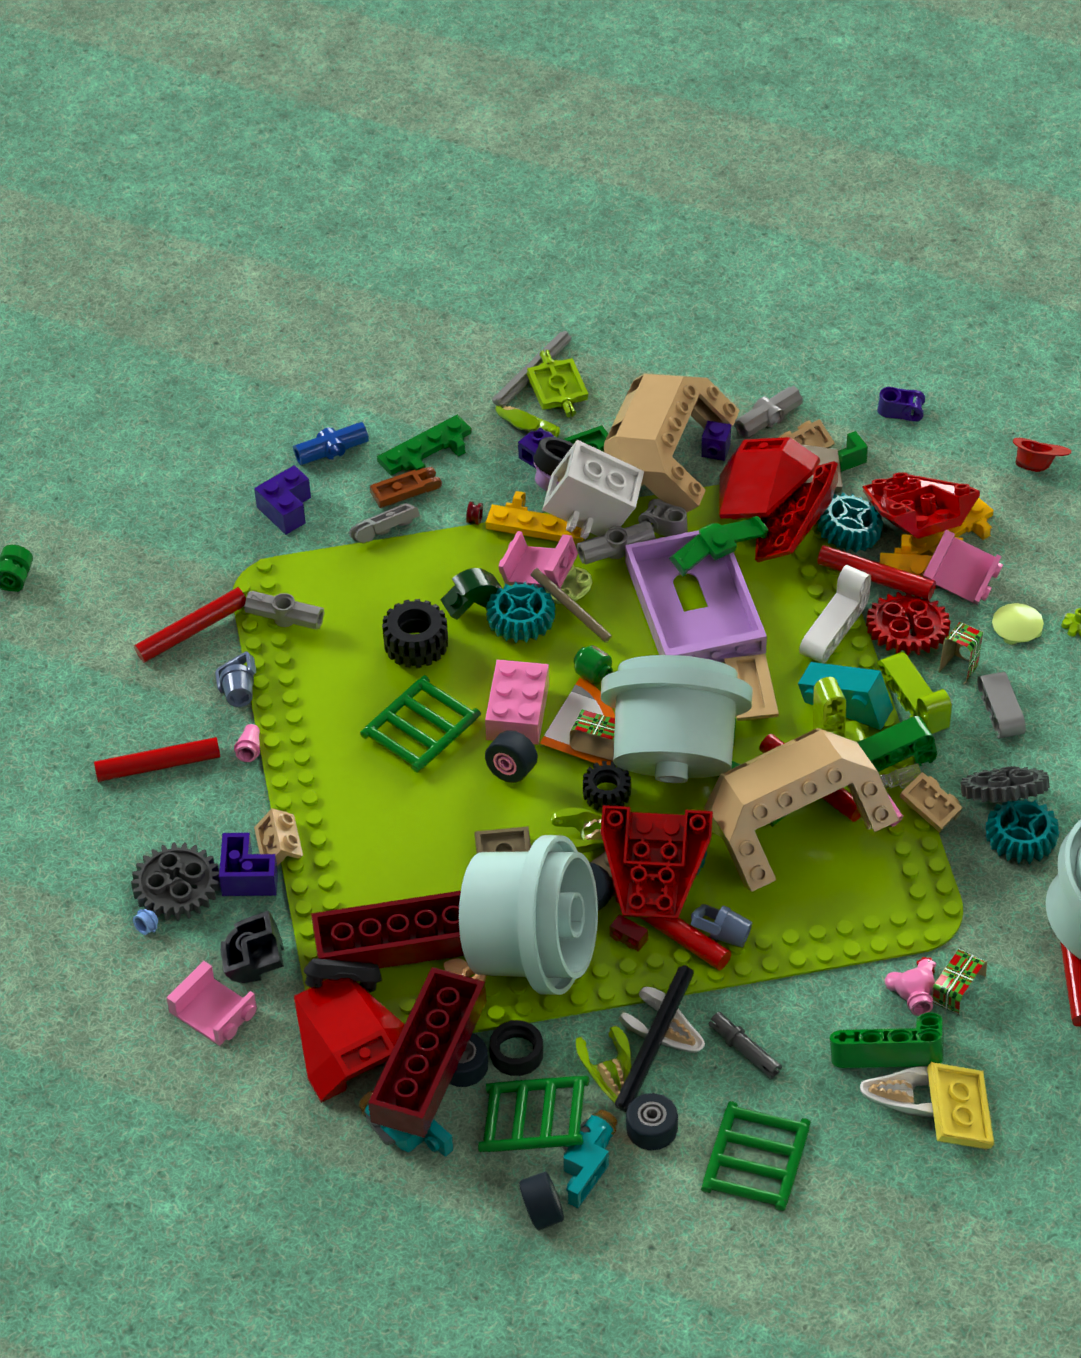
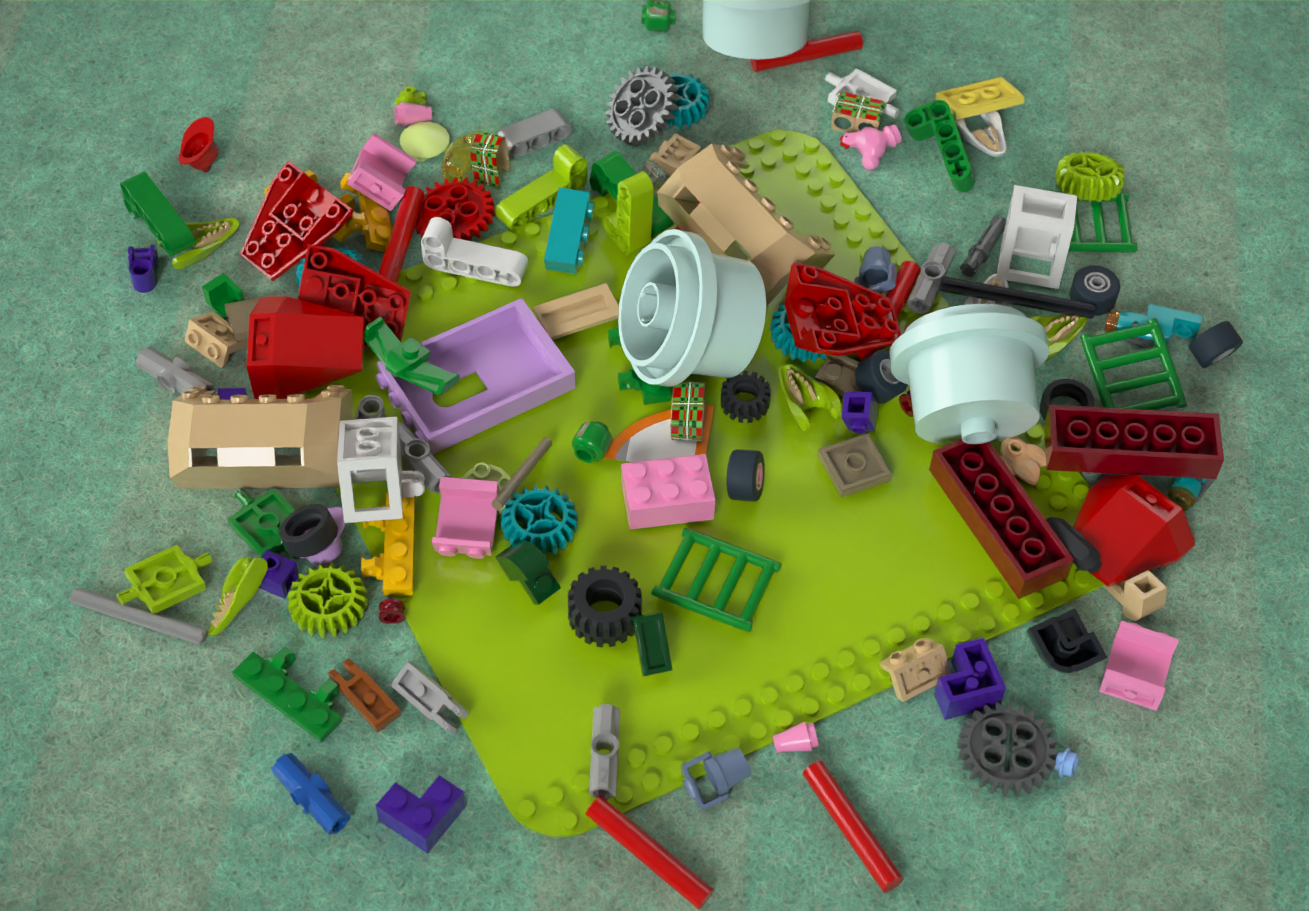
camera: 110 degrees left, 5 degrees up
(274, 1020) = (1139, 595): none -> tan brick
(365, 653) = (652, 643): none -> dark green tile
(499, 474) = (339, 610): none -> lime gear
(706, 972) = (929, 280): none -> light grey piece
(708, 1076) = (1040, 229): none -> white piece
(797, 1169) = (1090, 176): none -> lime gear
(927, 452) = (208, 238): none -> lime animal
(947, 406) = (147, 201): none -> green beam
(993, 648) = (457, 159): none -> clear yellow animal
(994, 998) = (863, 85): none -> white plate
(1053, 615) = (411, 113): none -> bright pink cone

